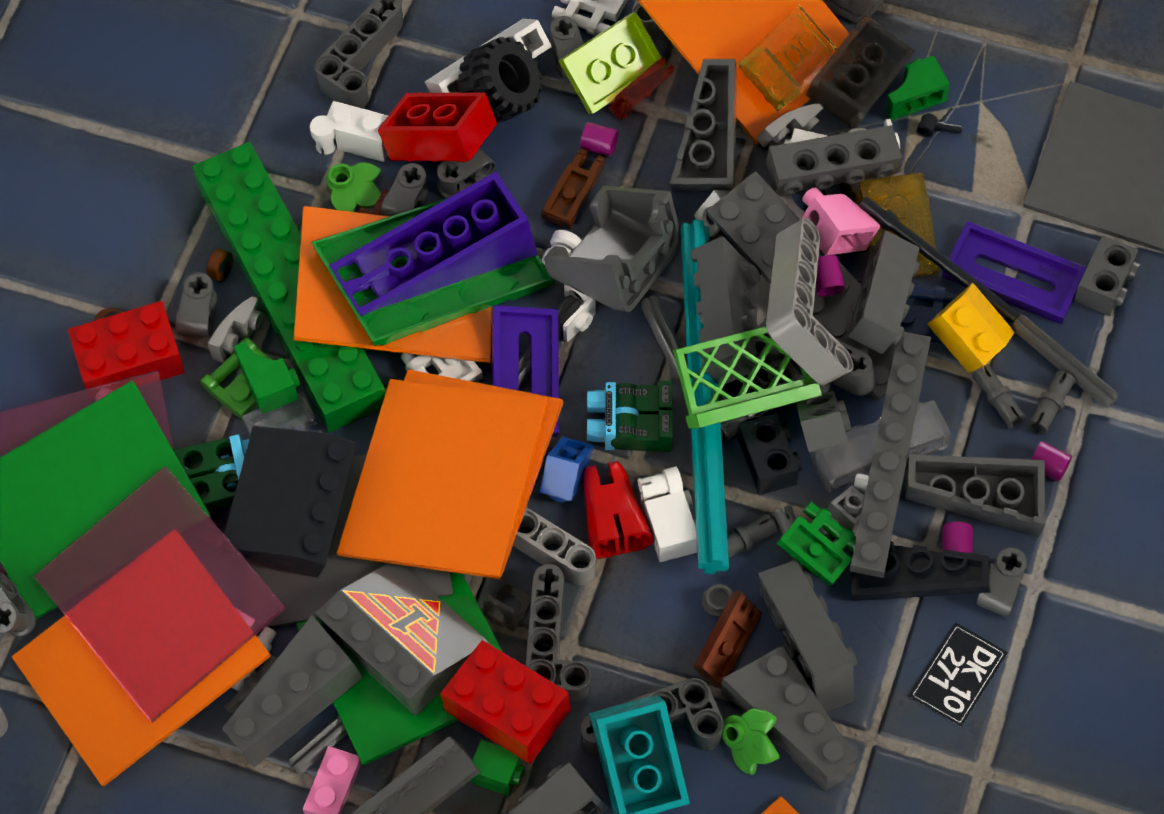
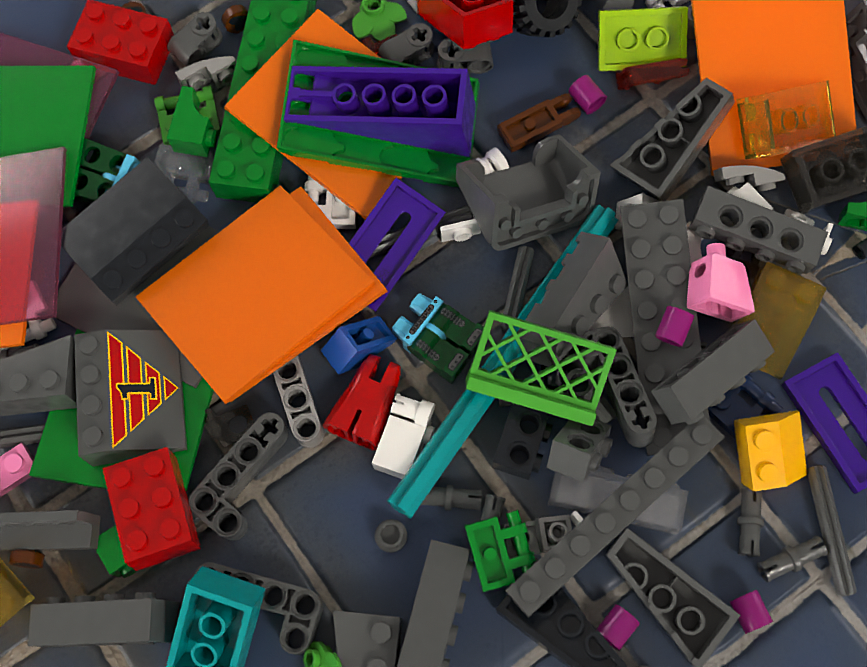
camera: 40 degrees right, 10 degrees up
(727, 639) = (371, 574): copper hinge -> none
(792, 305) = (605, 345): light grey beam -> none
(889, 221) = (766, 312): black bar -> none

